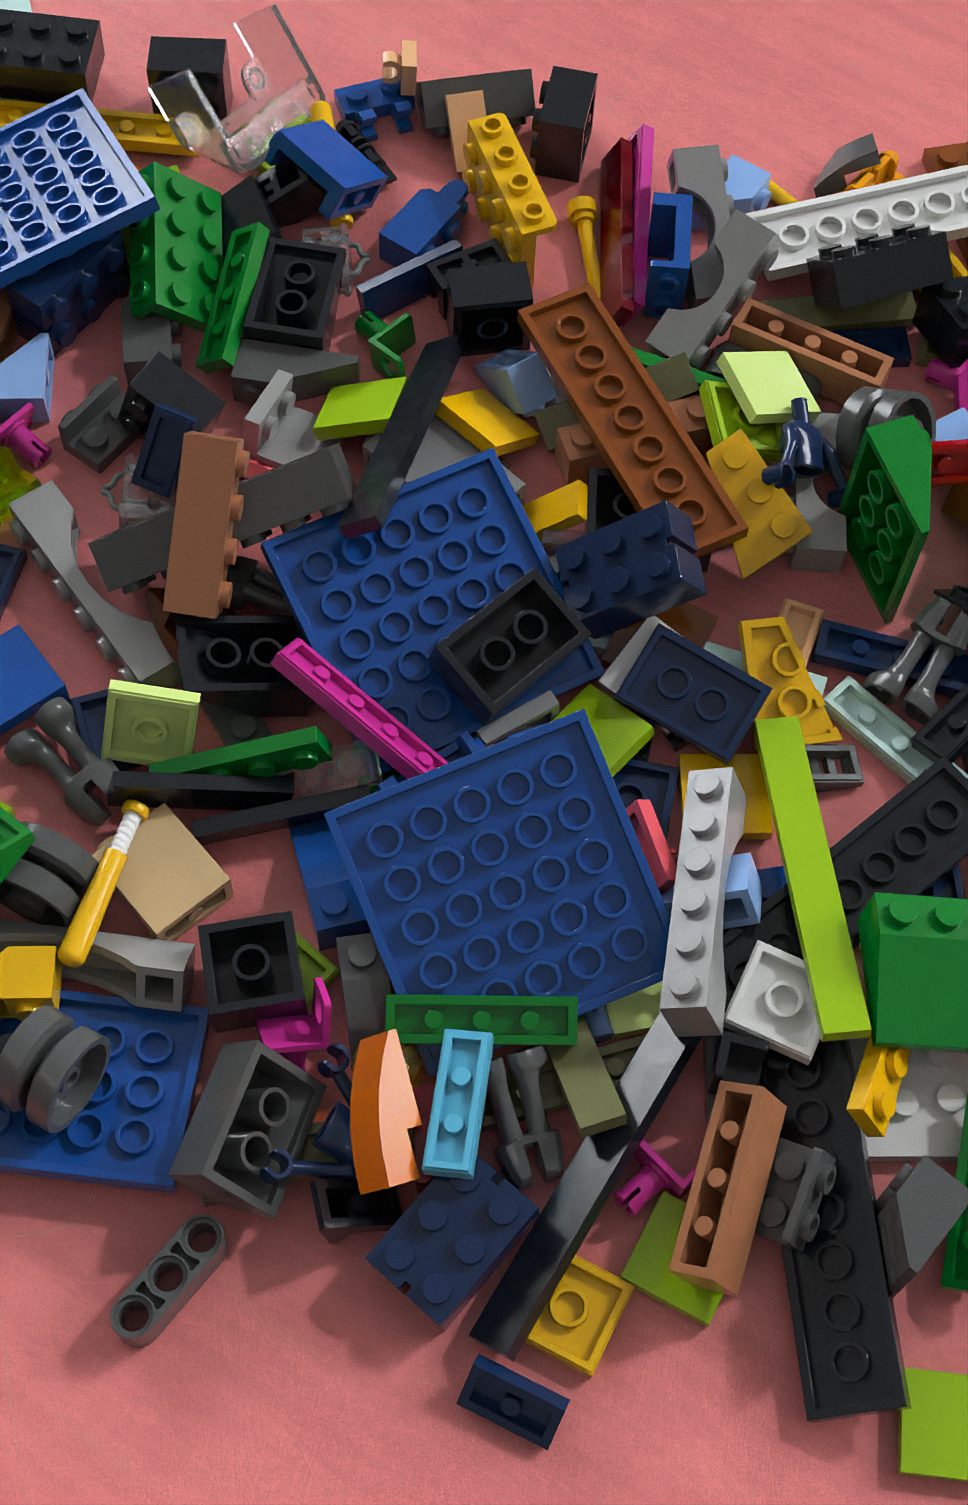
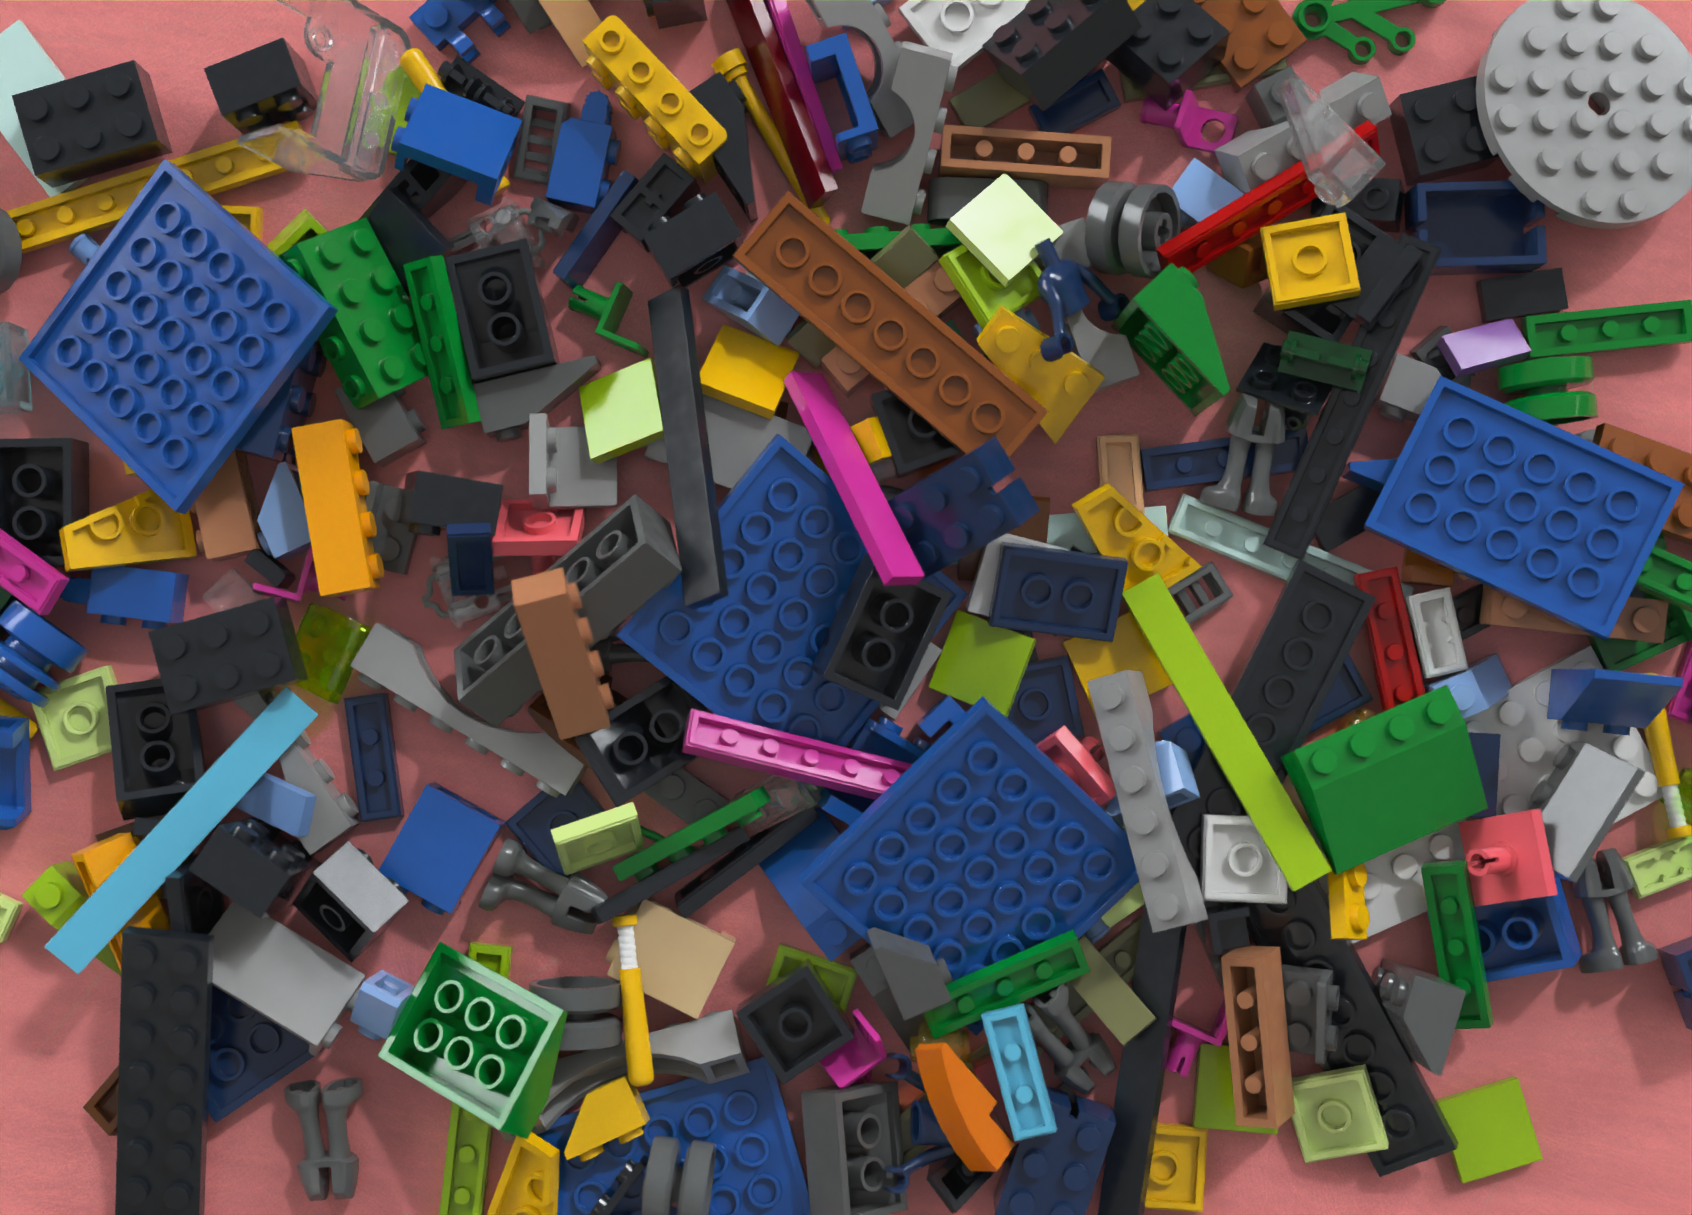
camera: 20 degrees left, 25 degrees up
(70, 374) = (337, 508): none -> light orange brick
(378, 250) = (552, 217): none -> dark grey slope
(392, 955) = (911, 972): none -> dark grey slope
(402, 180) = (526, 137): none -> dark grey slope
(543, 516) = (854, 479): none -> dark pink tile
(557, 249) = (733, 158): none -> black slope
(783, 1325) = (1337, 1114): none -> yellowish green tile

